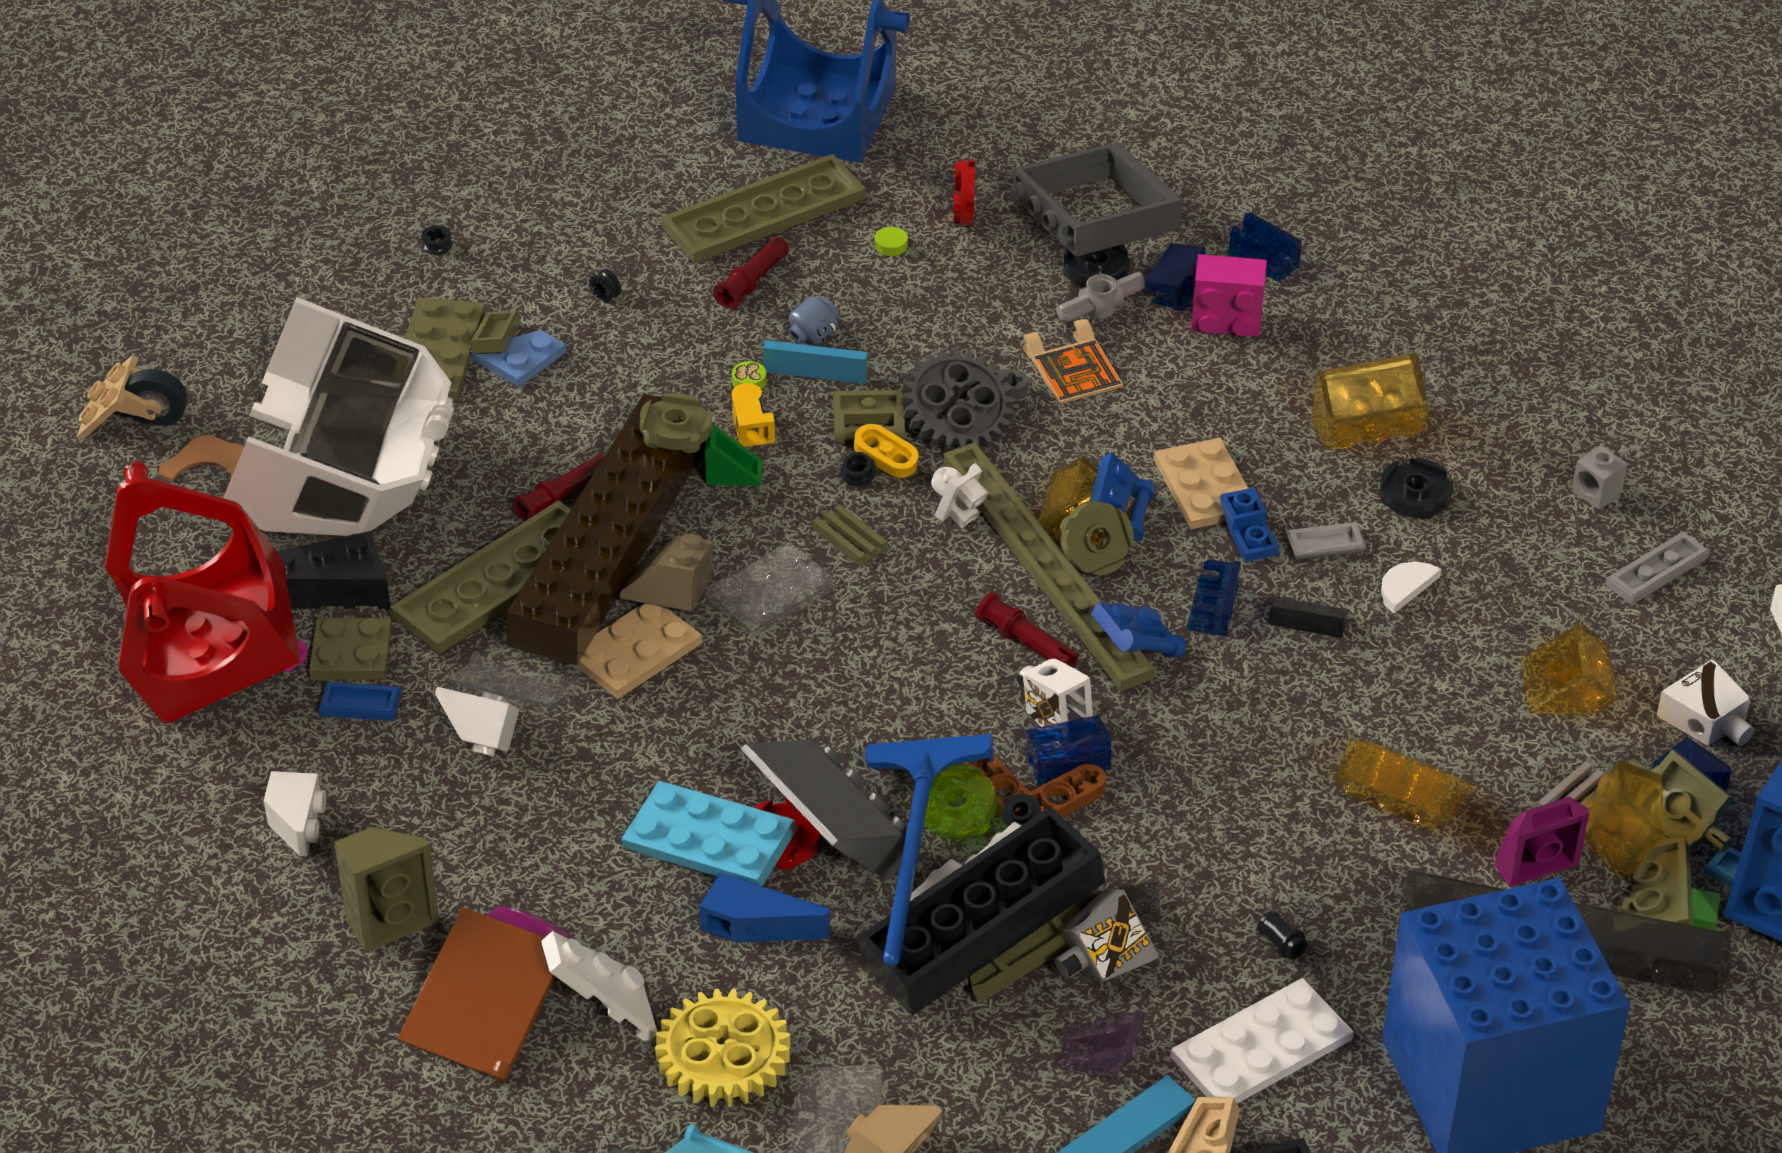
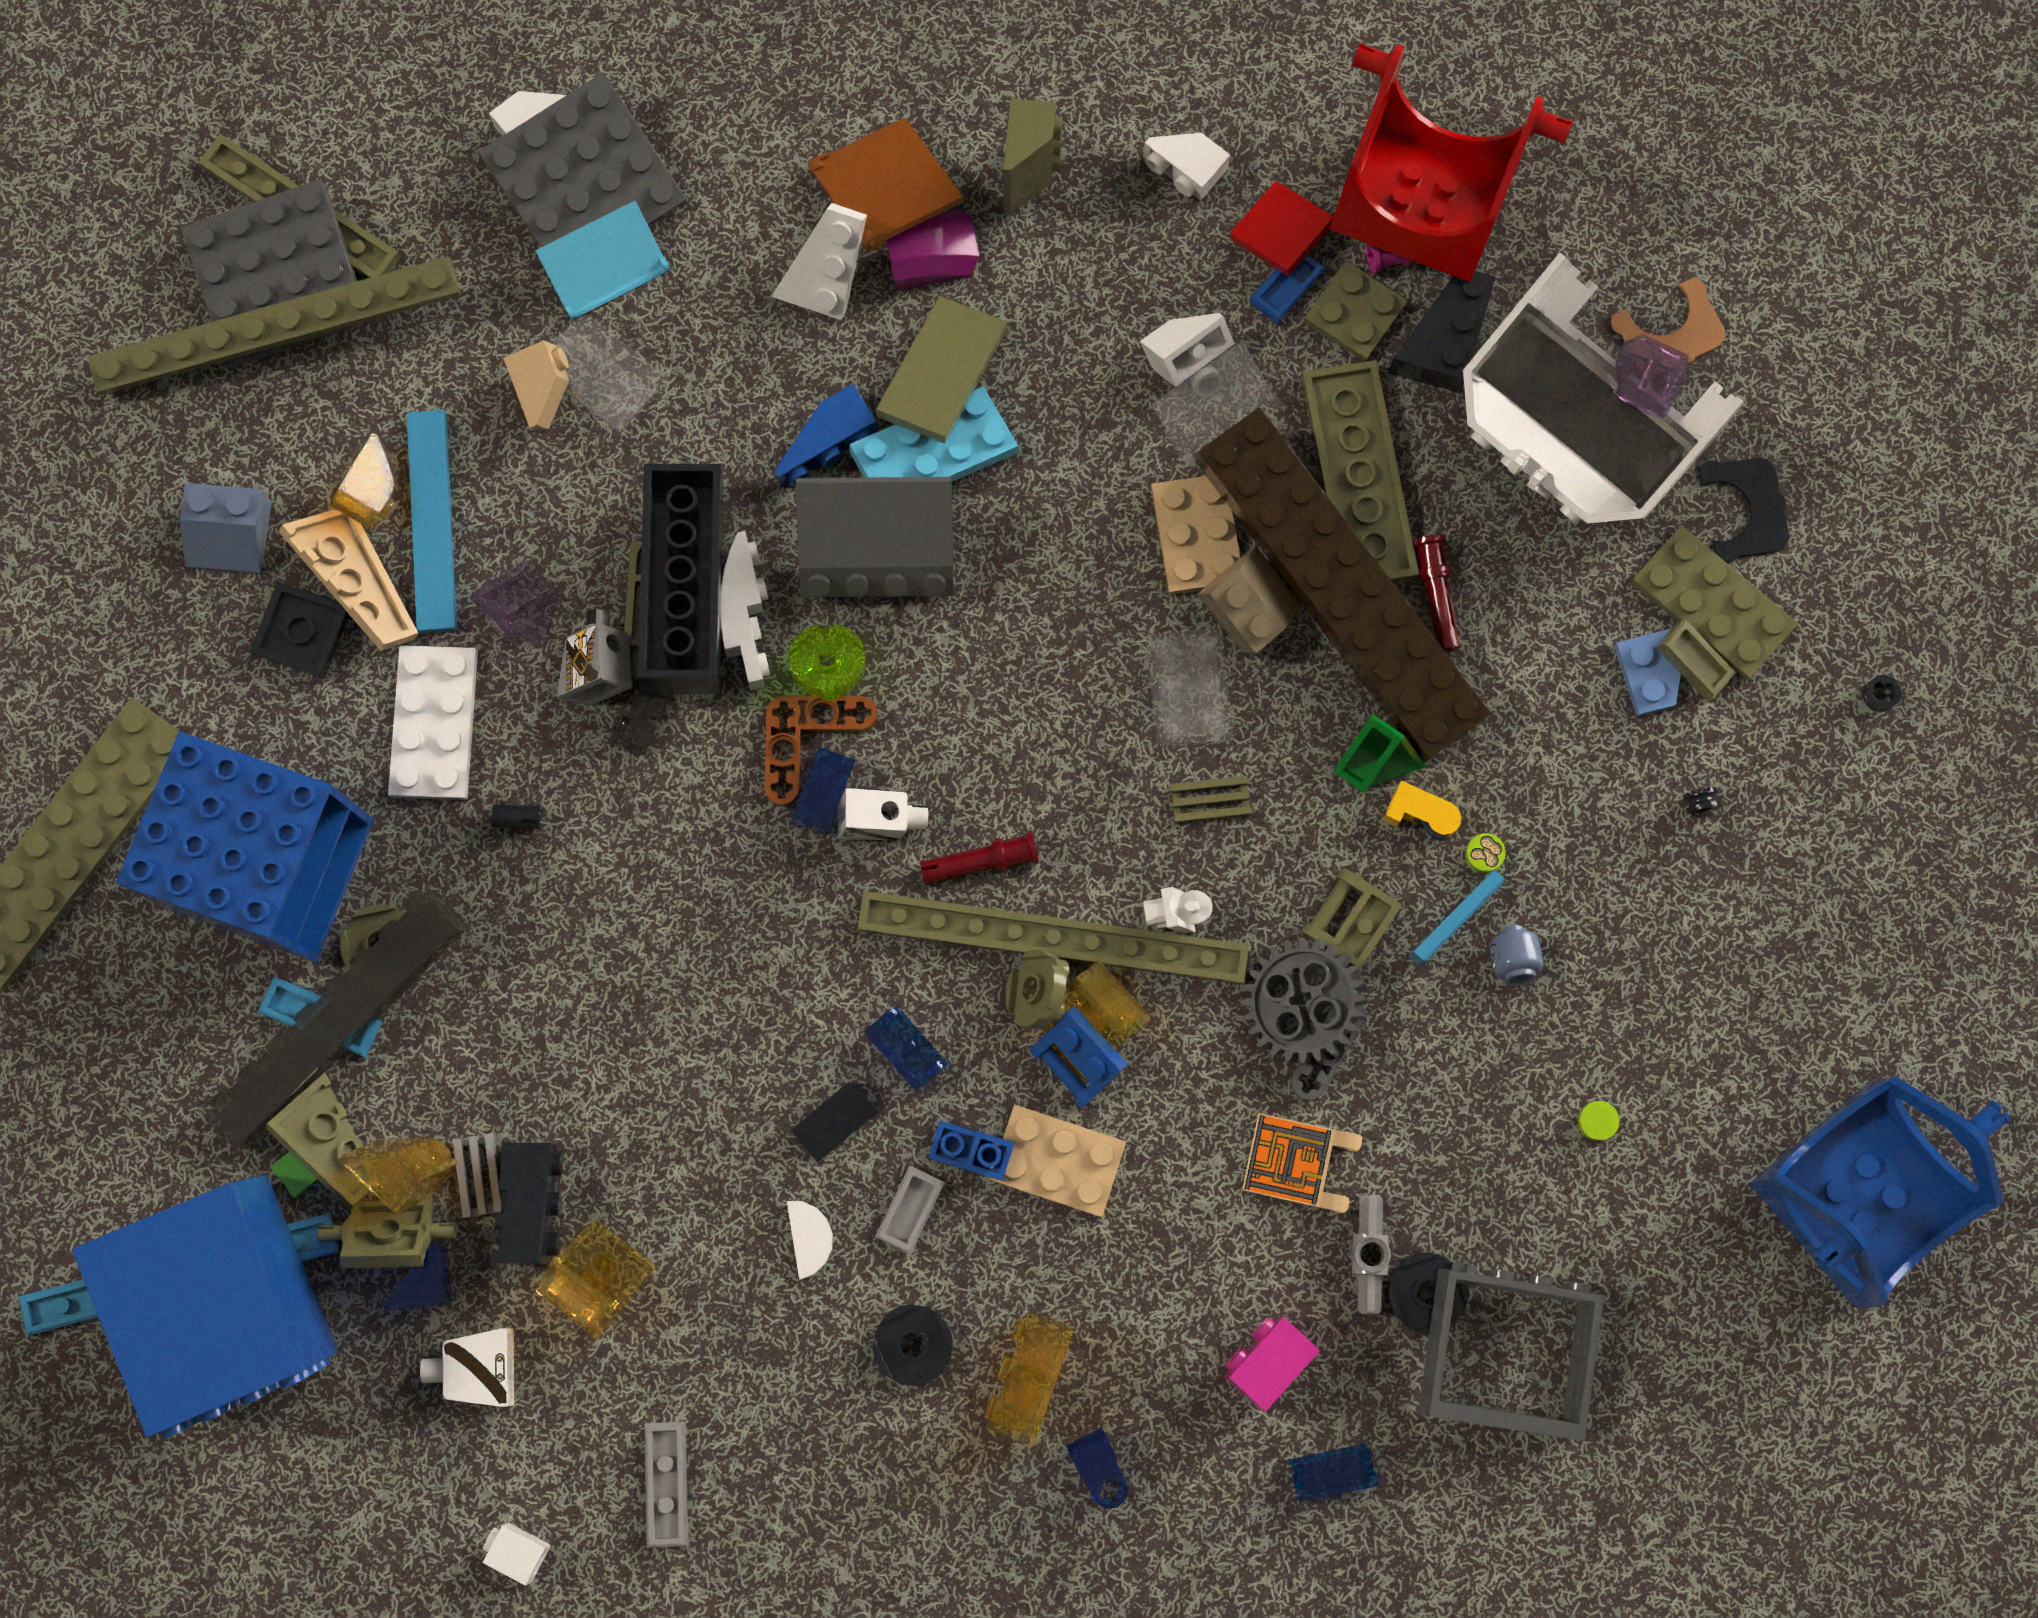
camera: 125 degrees right, 35 degrees up
(144, 394) = (1786, 304): plate -> none
(279, 433) = (1650, 374): none -> slope
(311, 721) = (1282, 228): none -> red tile
(631, 862) = (941, 369): none -> olive tile
(661, 431) = (1435, 697): olive plate -> none
(722, 1047) = (693, 307): light yellow gear -> none
(744, 279) = (1626, 934): dark red pin -> none
(763, 208) = (1727, 1030): olive plate -> none
(858, 462) = (1286, 850): black plate -> none
(890, 451) = (1289, 895): yellow plate -> none
(923, 761) = (877, 656): blue piece -> none
(965, 184) = (1608, 1229): red plate -> none
(1017, 801) = (777, 704): black plate -> none
(1138, 629) = (919, 945): blue plate -> none
(1175, 276) = (1352, 1354): clear blue hinge -> none
(1390, 342) = (1096, 1461): none -> clear blue piece
(1401, 783) = (590, 1040): clear yellow slope -> none
(1542, 841) = (437, 1082): magenta slope -> none
(1572, 731) = (528, 1204): none -> black wedge
(1599, 477) = (797, 1520): light grey brick -> none

